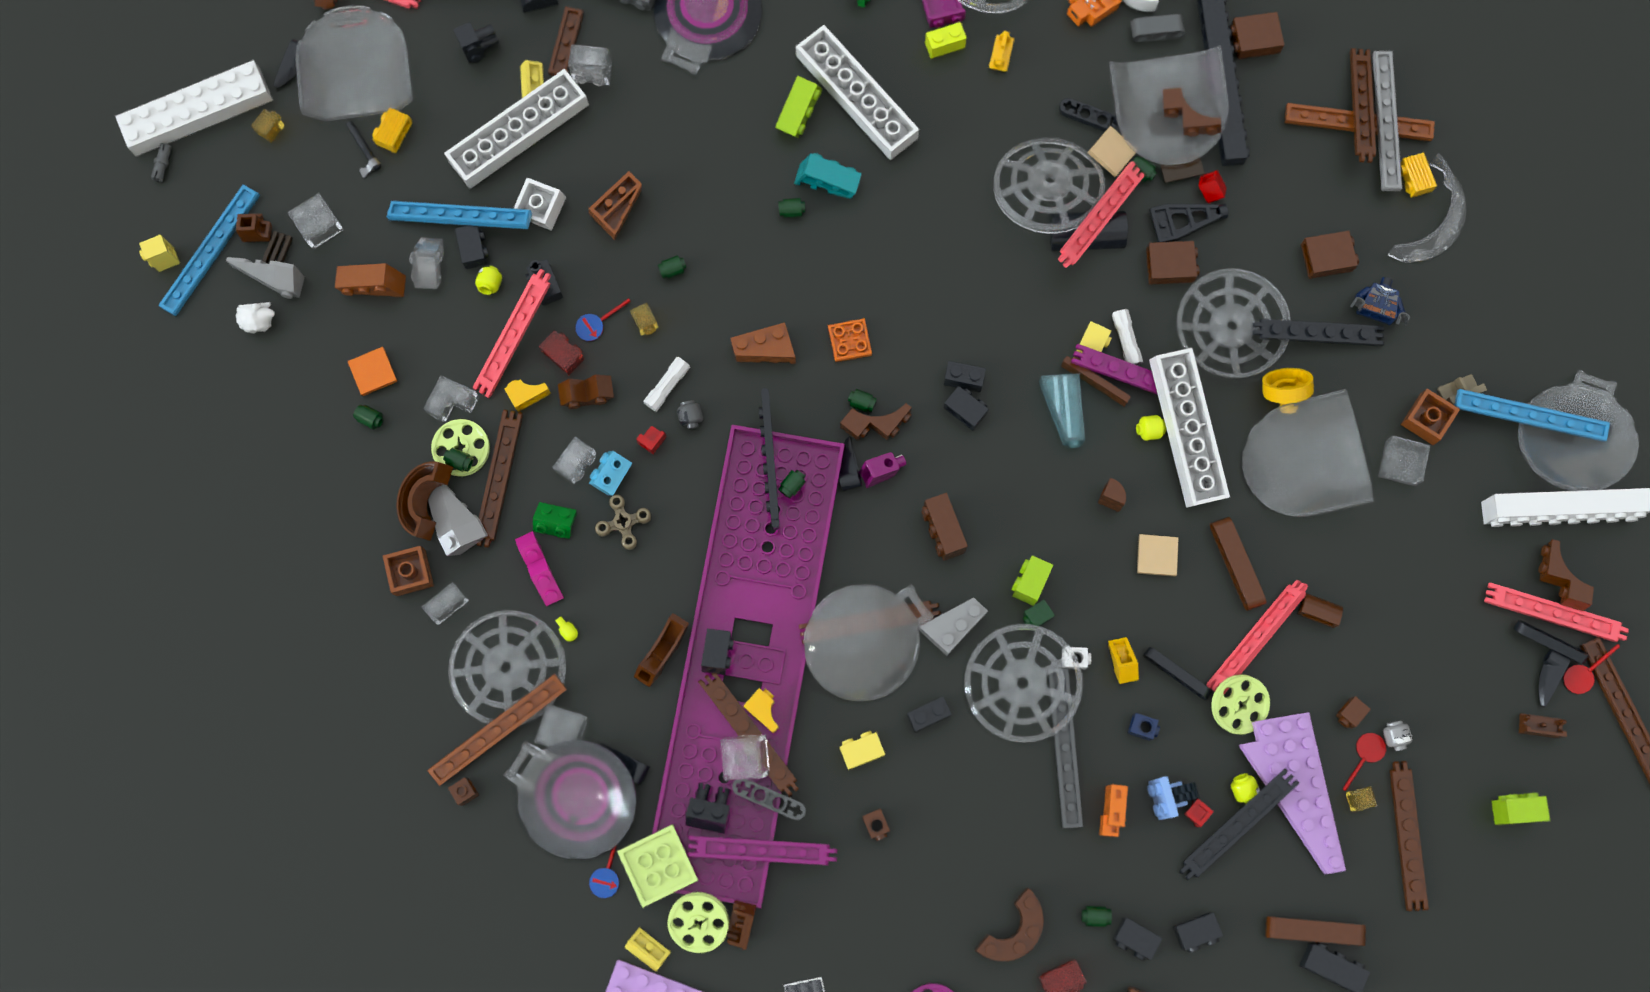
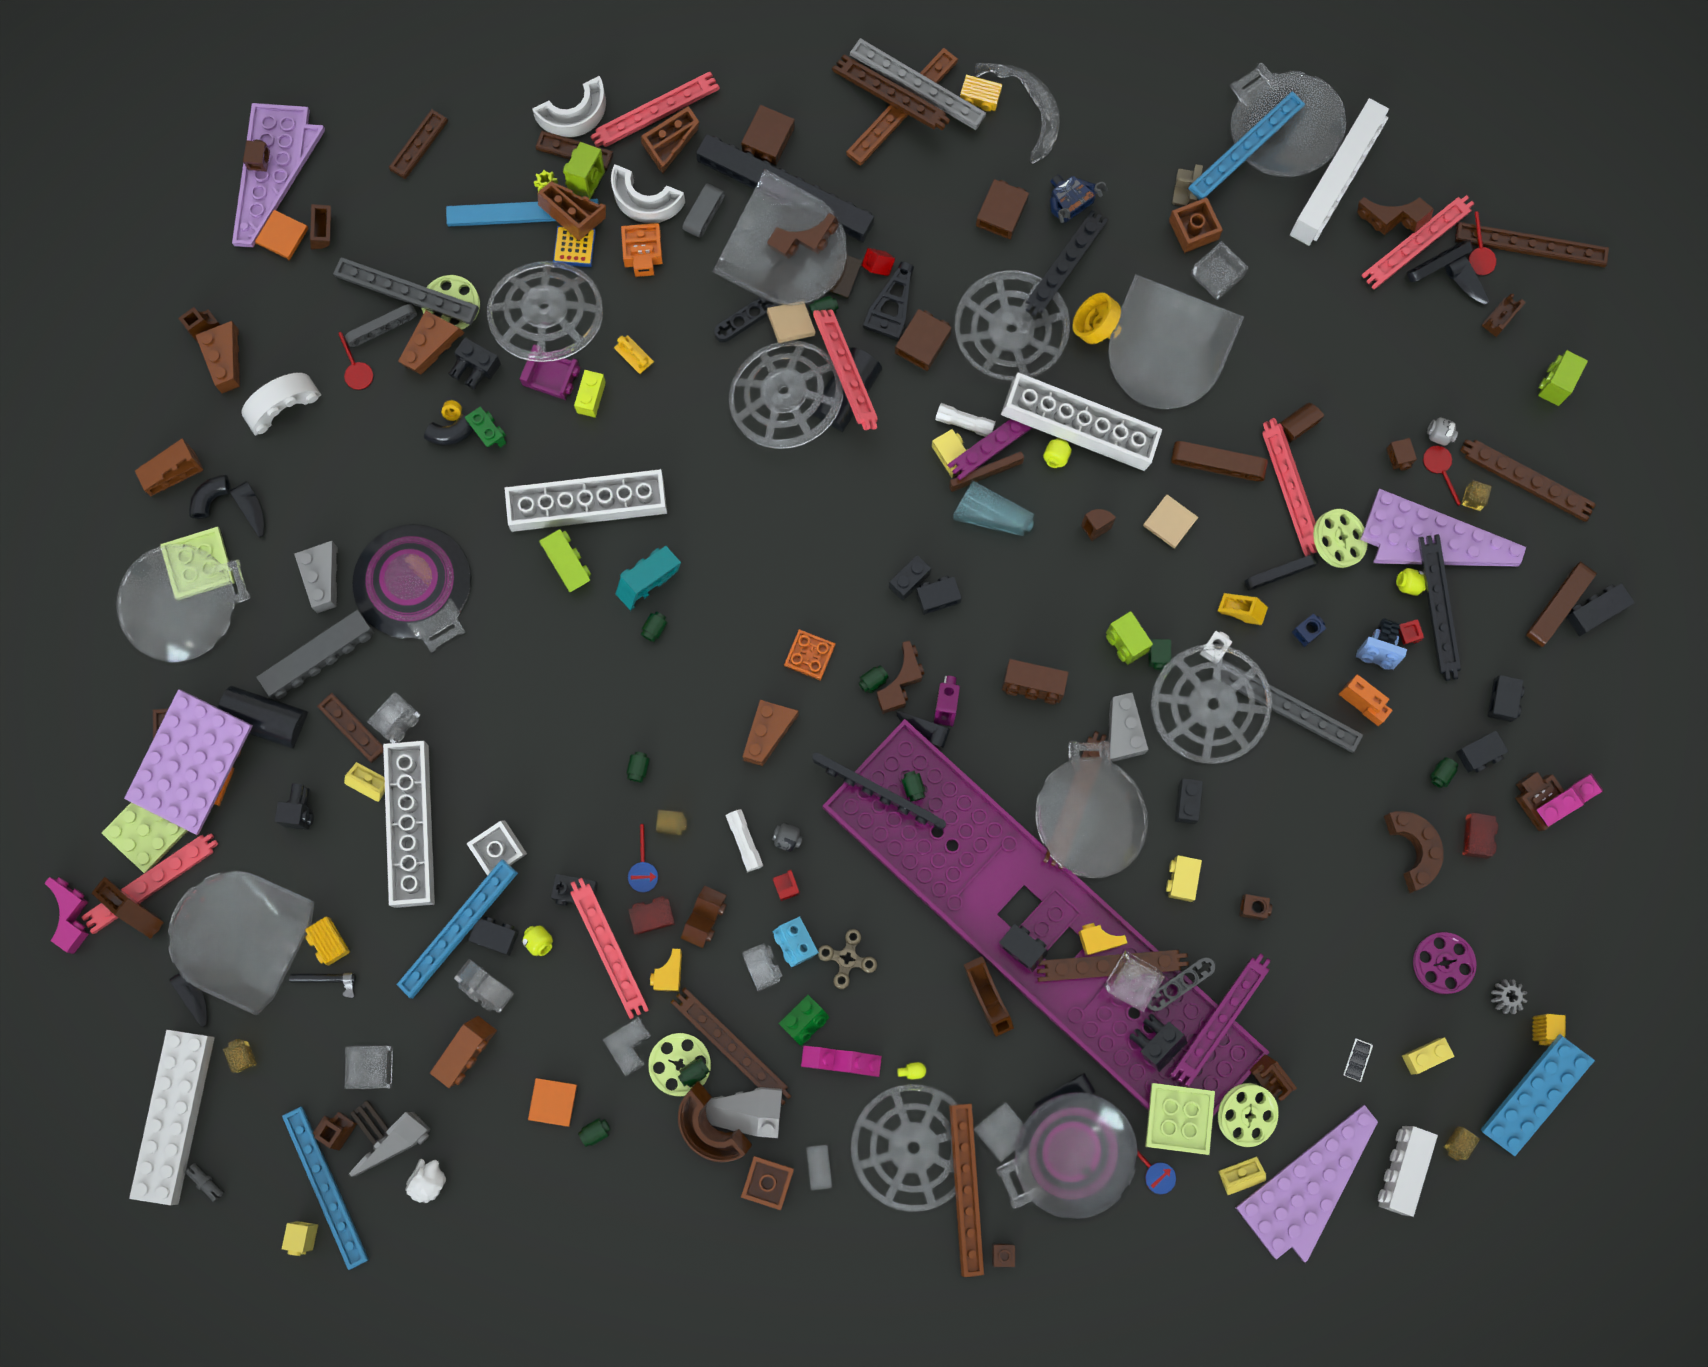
camera: 60 degrees left, 0 degrees up
(615, 205) = (545, 779): dark orange wedge -> none

